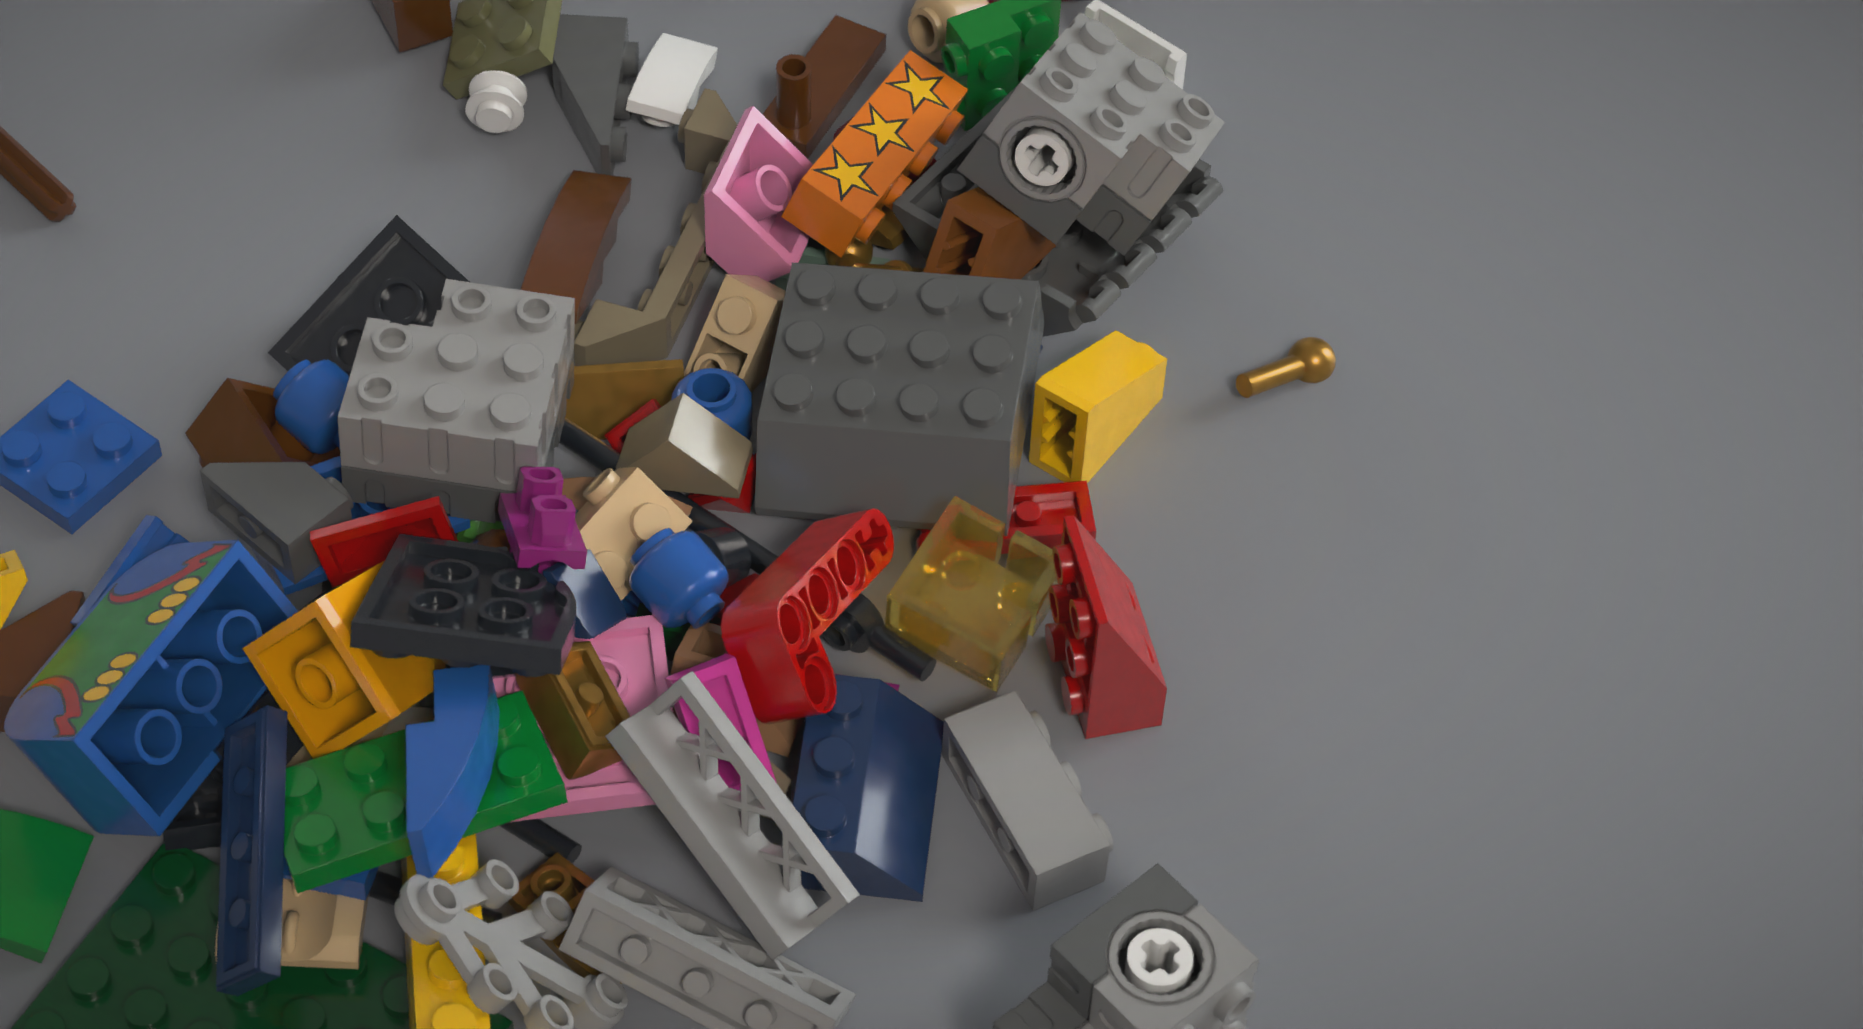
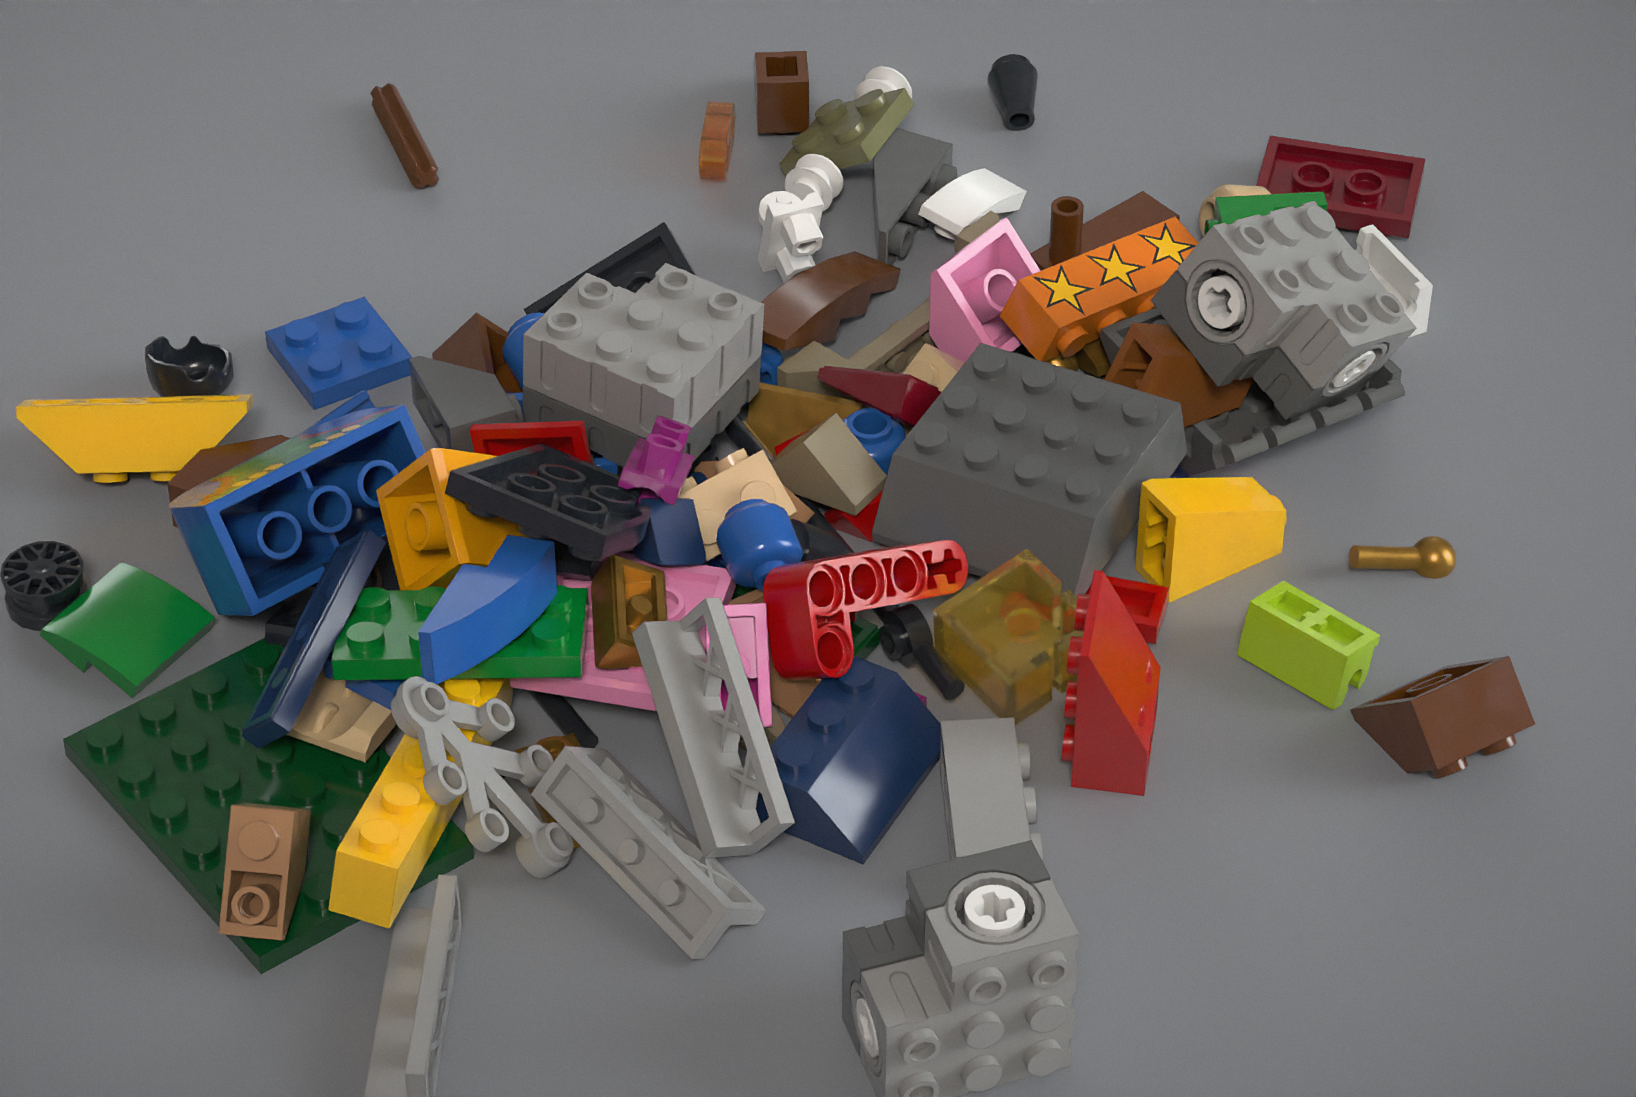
camera: 25 degrees right, 10 degrees down
(365, 75) = (717, 140): none -> clear orange beam
(507, 174) = (789, 232): none -> white hips
(728, 349) = (888, 392): none -> dark red slope
(1248, 503) = (1306, 644): none -> lime hinge
(1416, 541) = (1448, 716): none -> reddish brown slope

